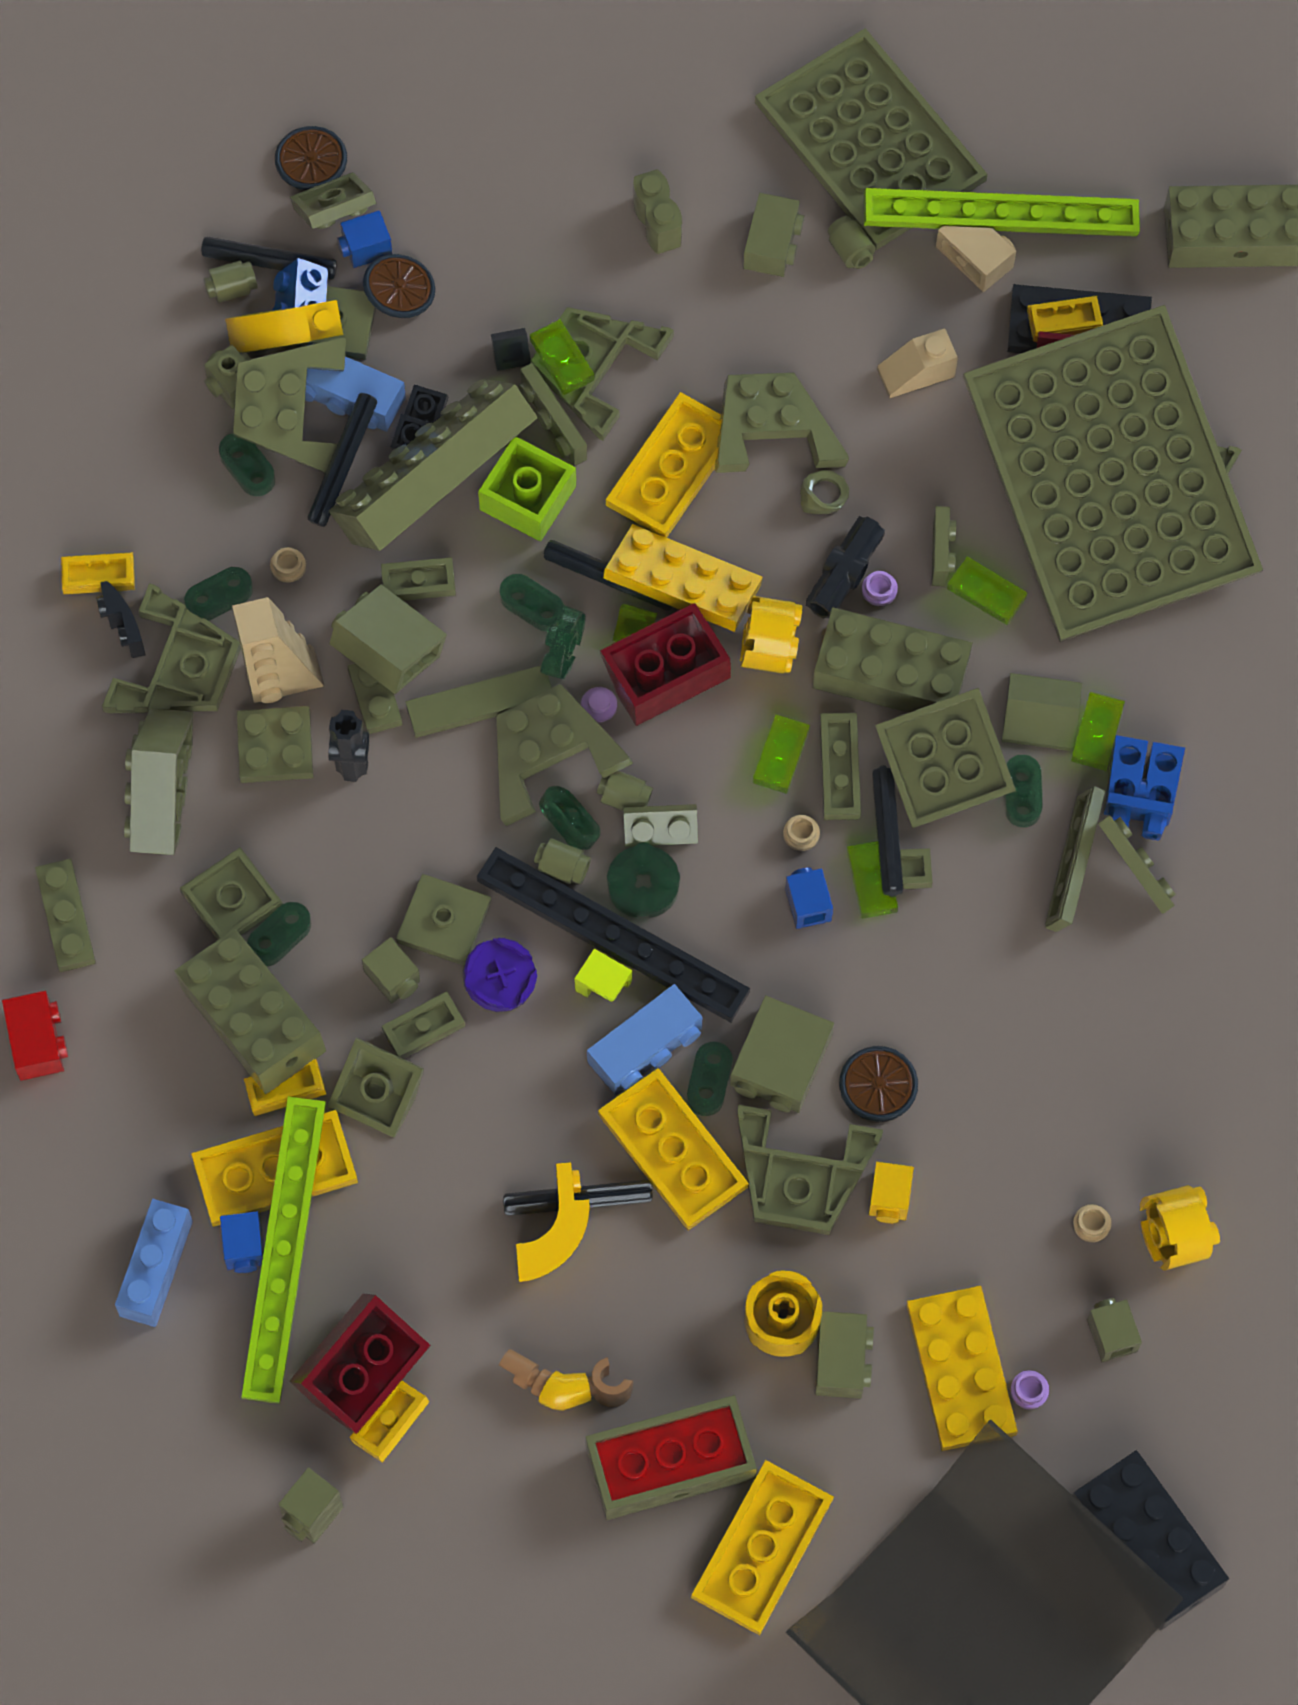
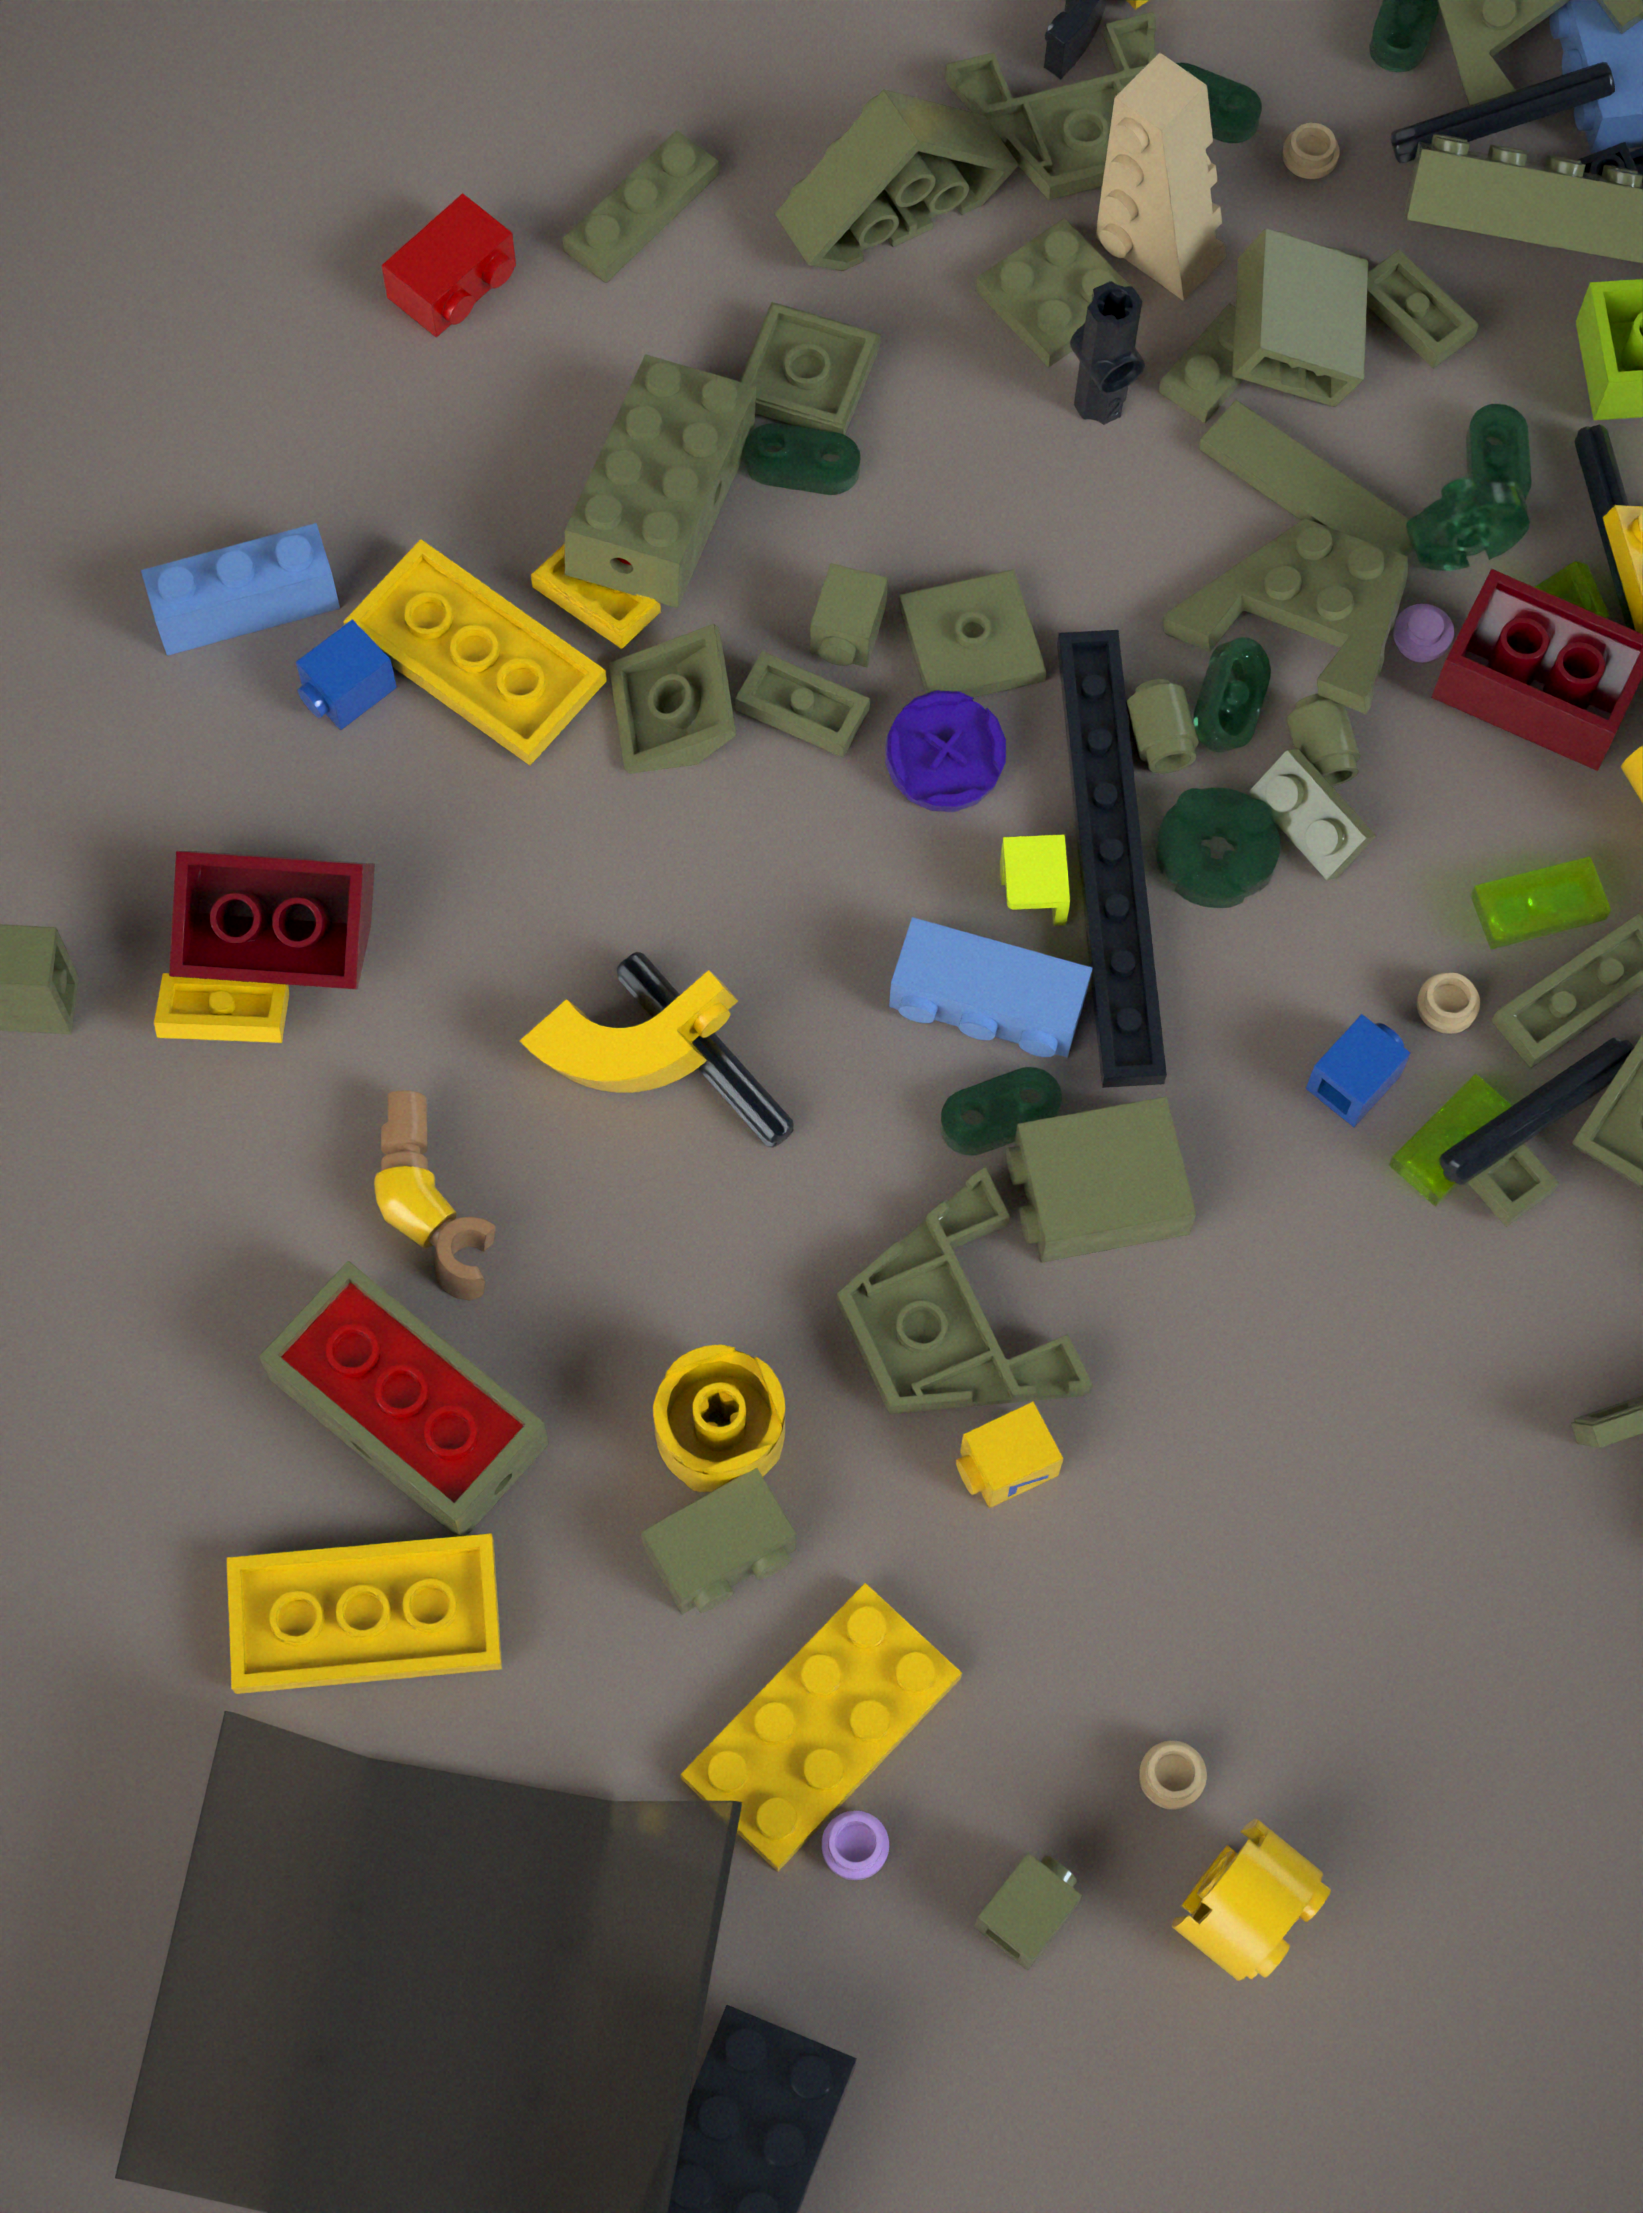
camera: 55 degrees right, 0 degrees up
(283, 1250) = (362, 725): lime plate -> none
(673, 1149) = (860, 1126): yellow plate -> none
(878, 1083) = (1162, 1341): reddish brown wheel -> none

